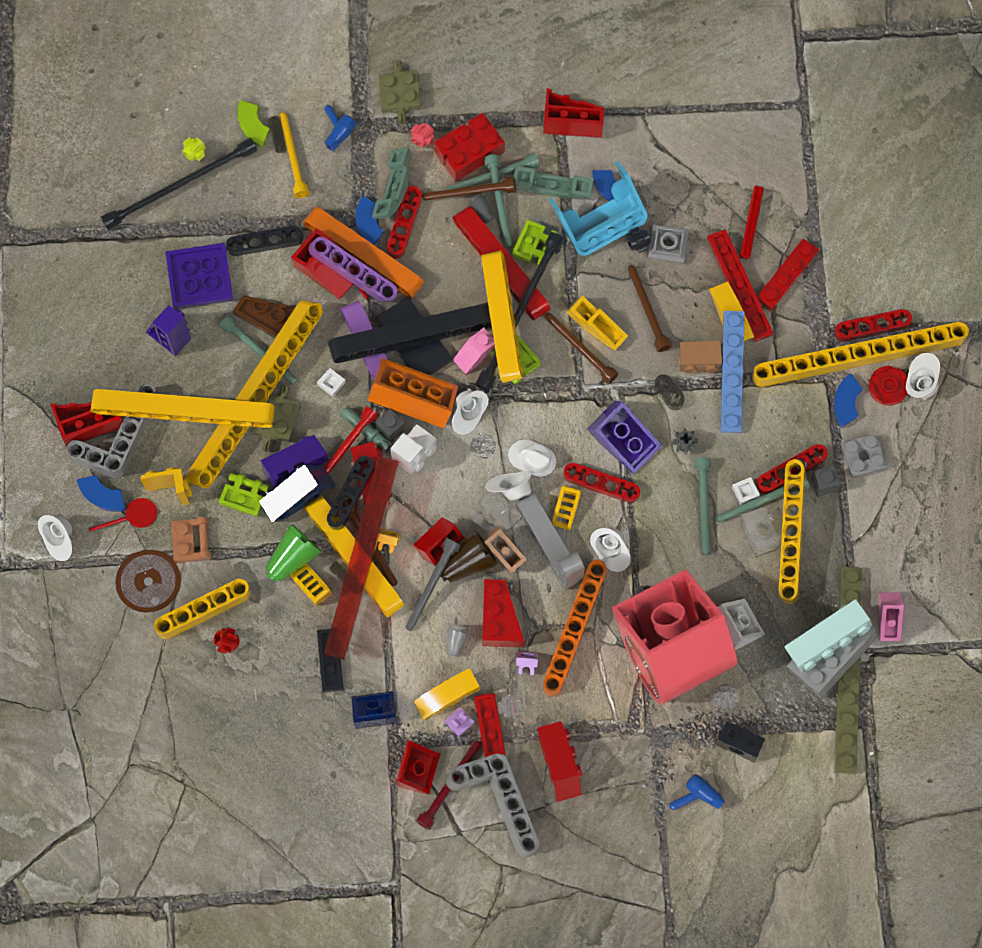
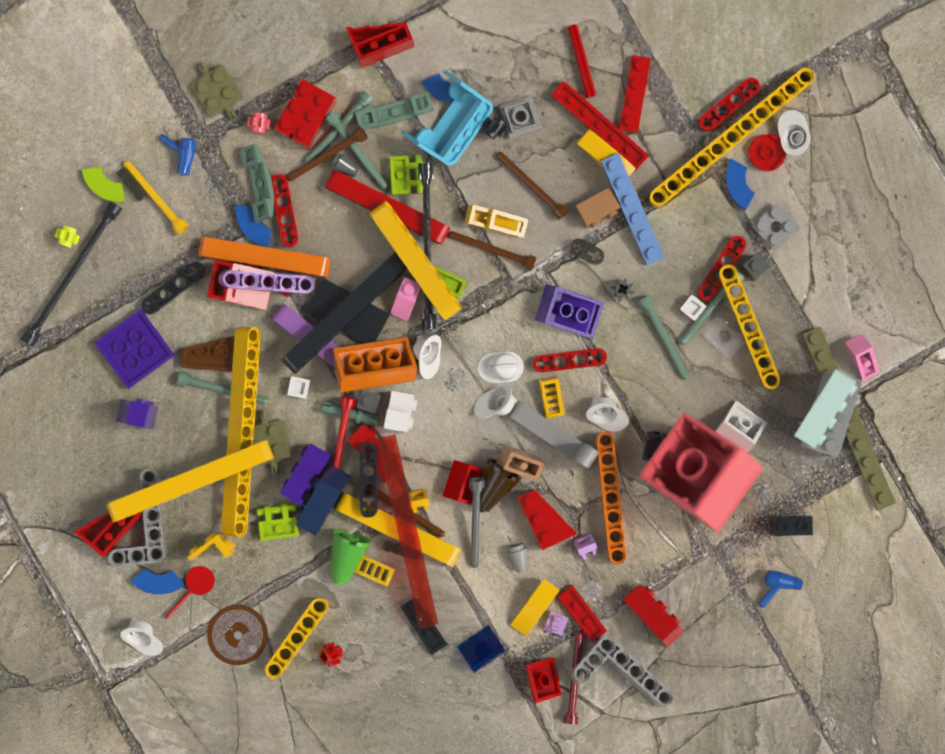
camera: 30 degrees left, 15 degrees up
(184, 540) = (249, 586): nougat plate -> none

